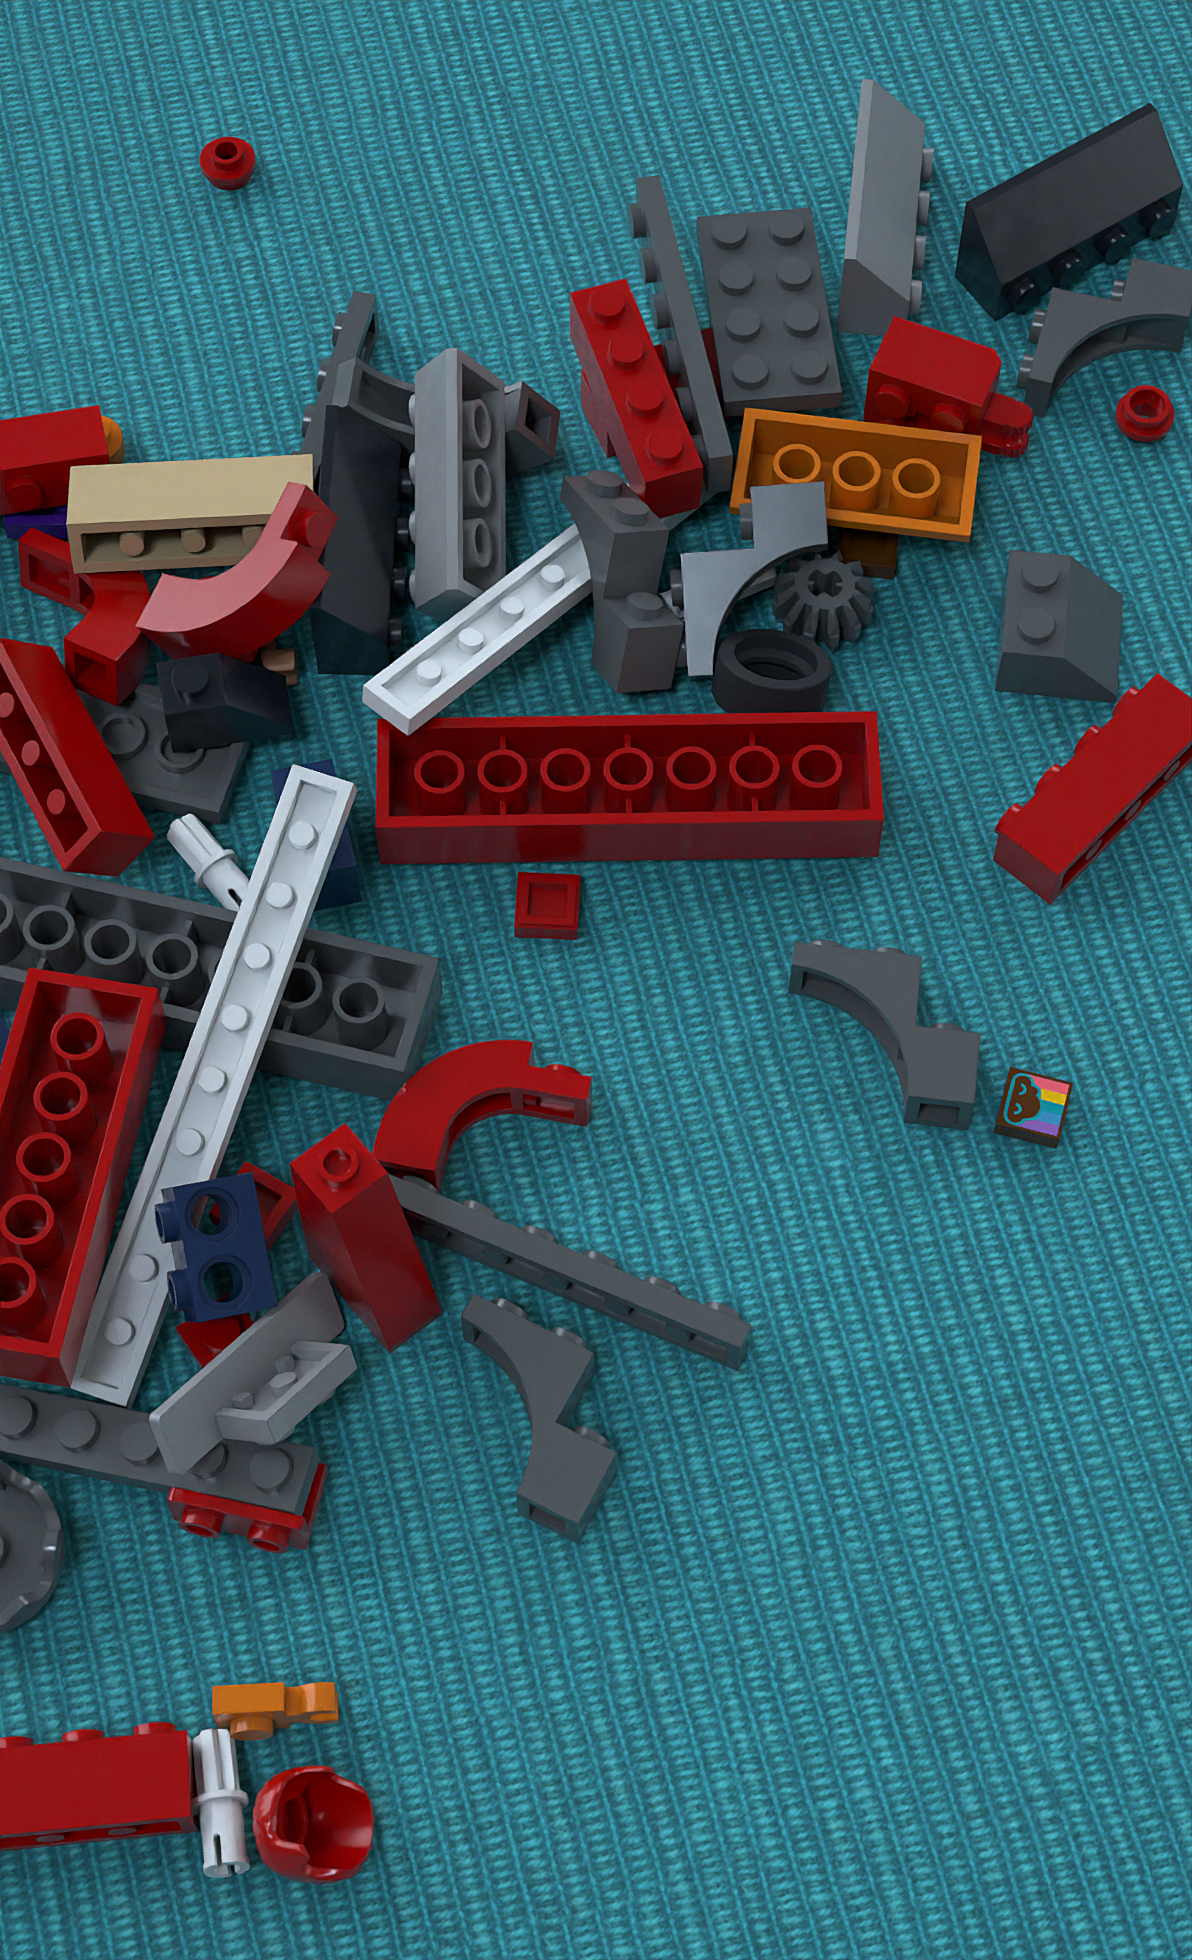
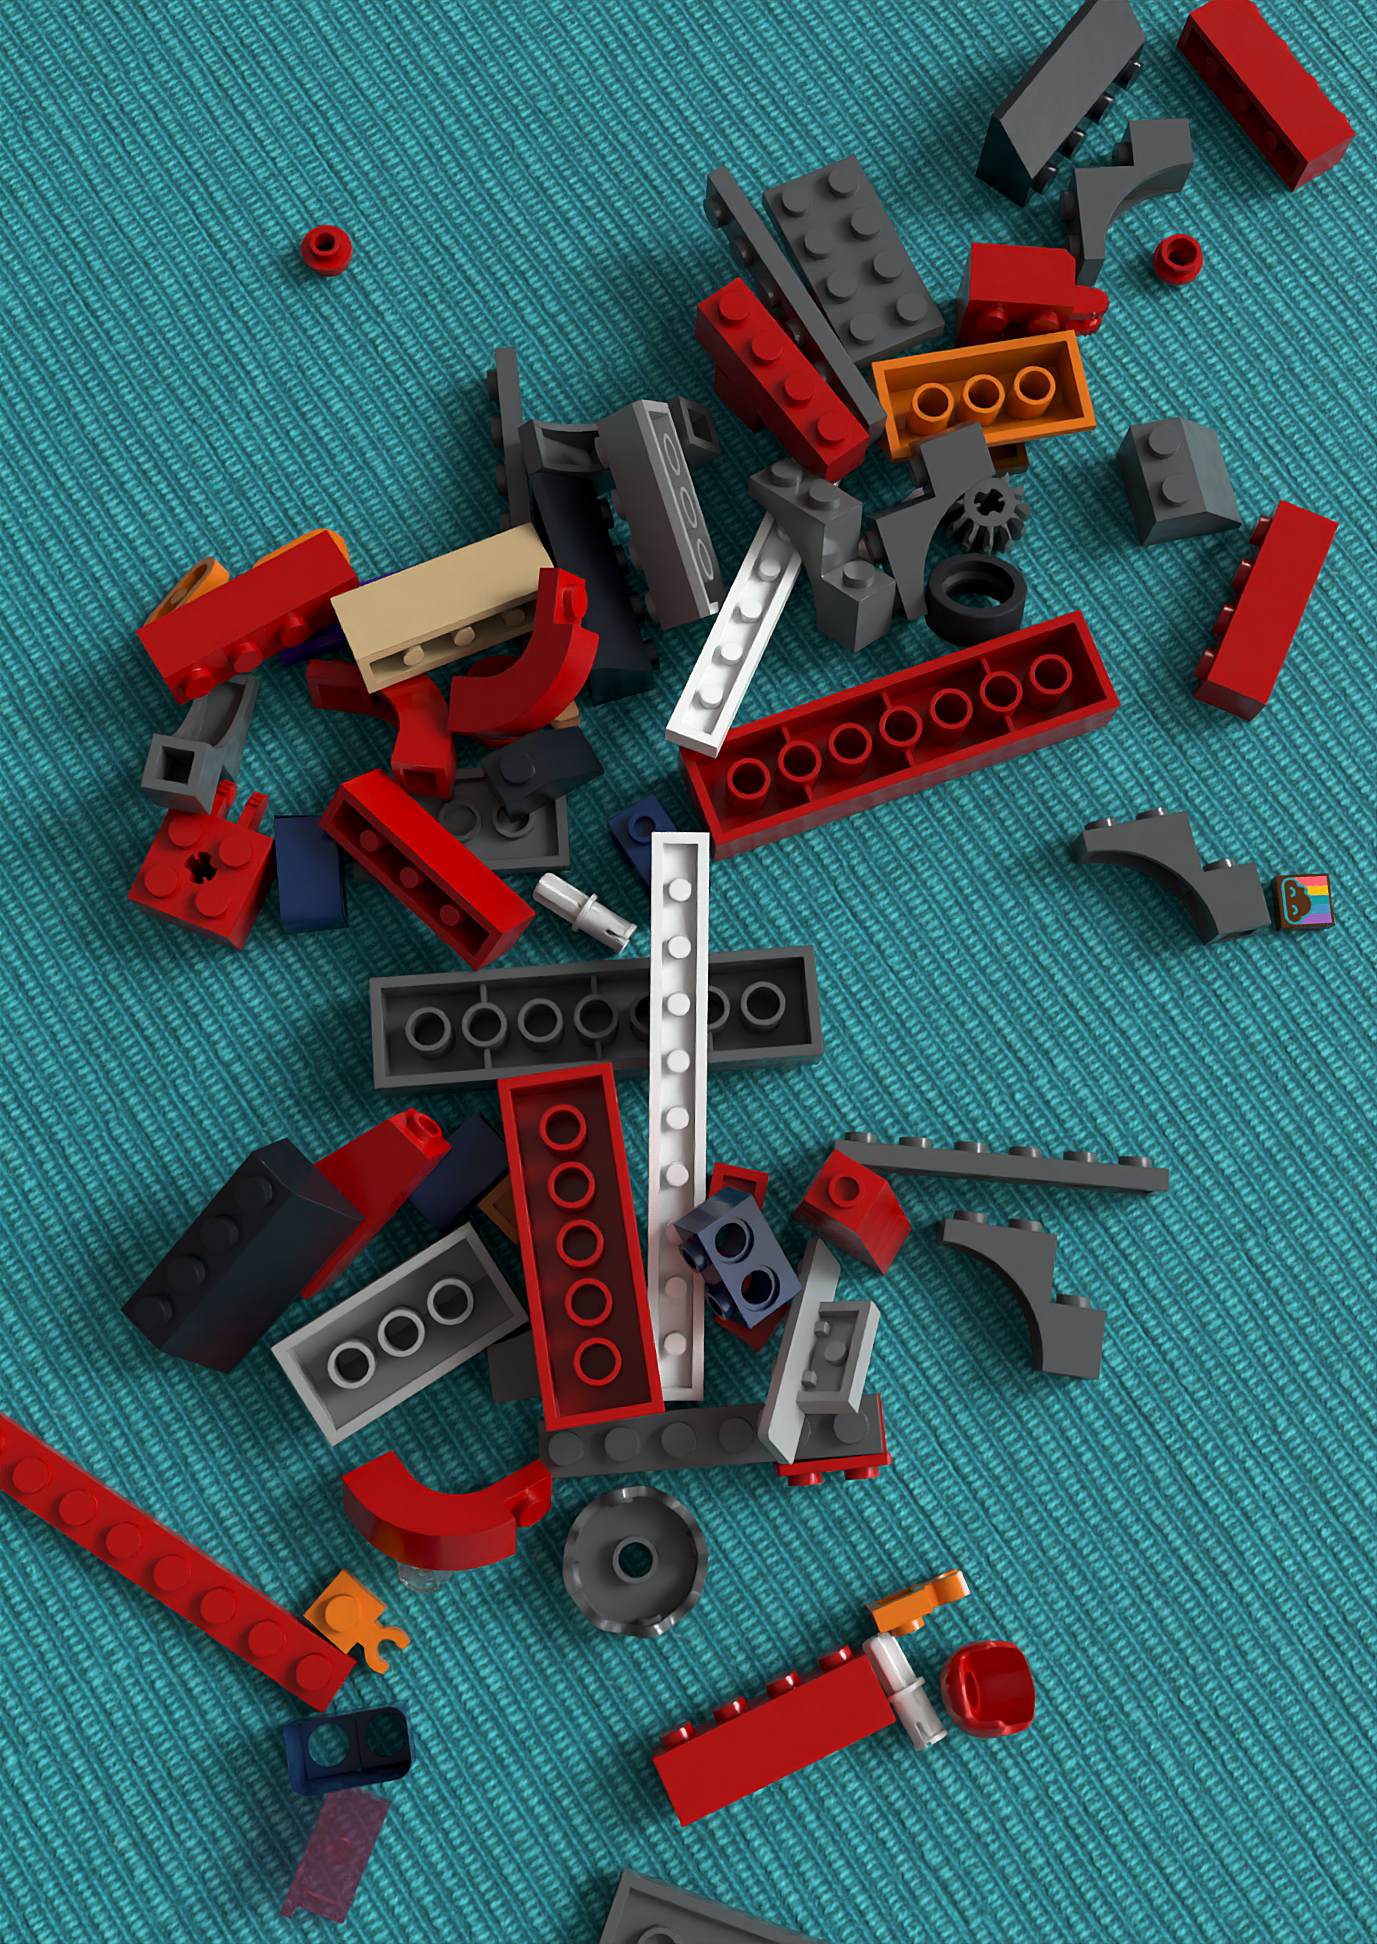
camera: 25 degrees left, 15 degrees up
(468, 1088) = (843, 1075): red arch -> none
(547, 906) = (862, 854): red tile -> none
(884, 215) = (906, 140): light grey slope -> none

